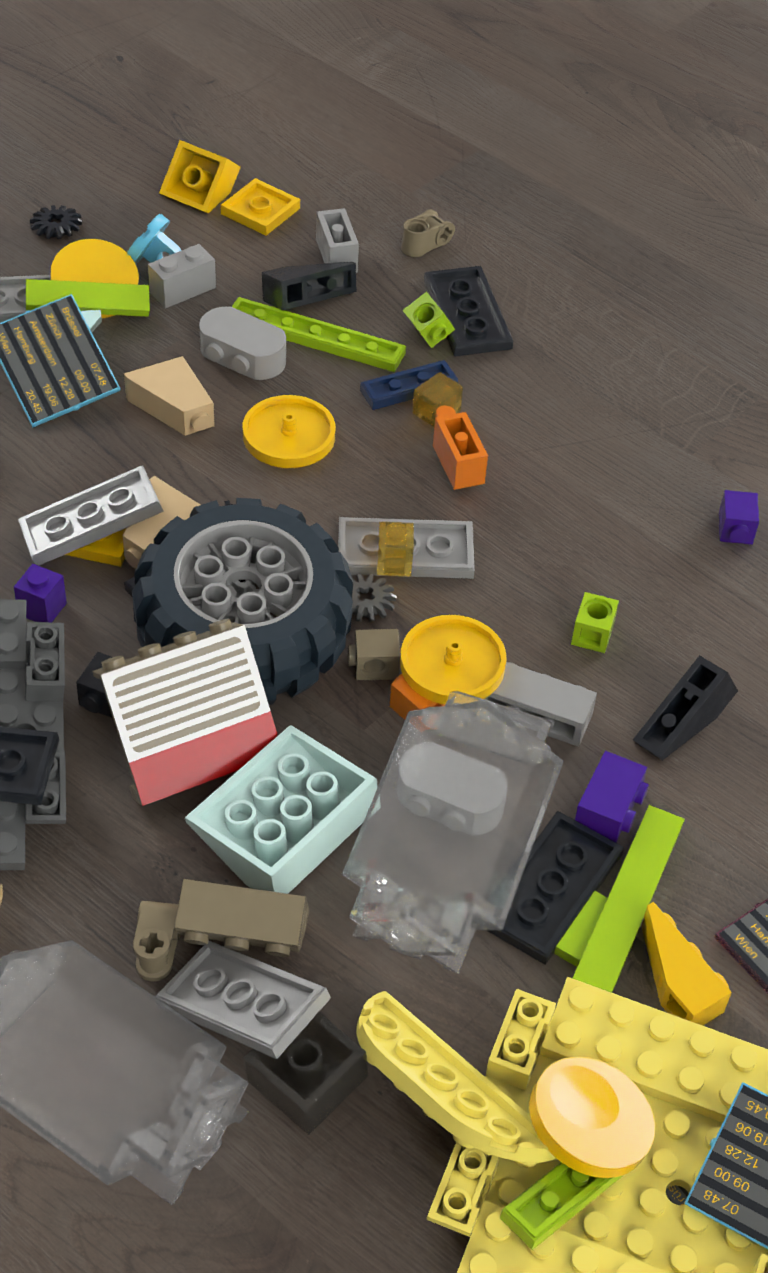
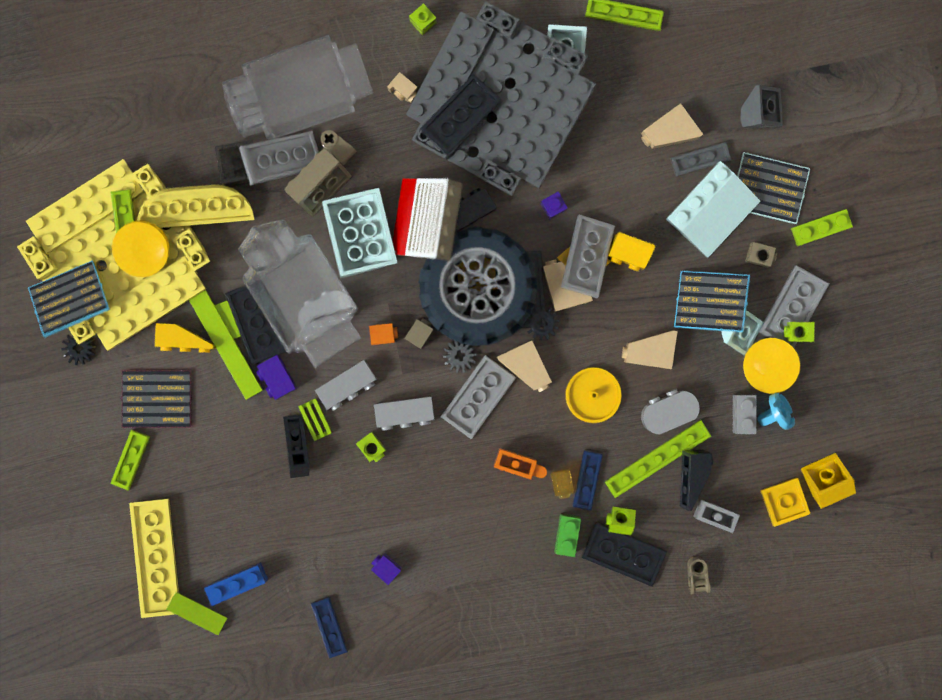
camera: 130 degrees right, 40 degrees up
(24, 263) = (807, 332): none -> lime brick
(43, 223) = (839, 384): black gear -> none
(44, 469) = (630, 251): none -> yellow slope
(107, 297) = (755, 350): lime tile -> none
(316, 496) = (527, 365): none -> tan slope
(395, 548) = (469, 382): clear yellow brick -> none
(452, 656) = (384, 358): yellow piece -> none
(499, 361) = (567, 535): none -> bright green brick
(508, 610) = (404, 413): none -> light grey brick
(633, 699) = (309, 425): none -> lime tile

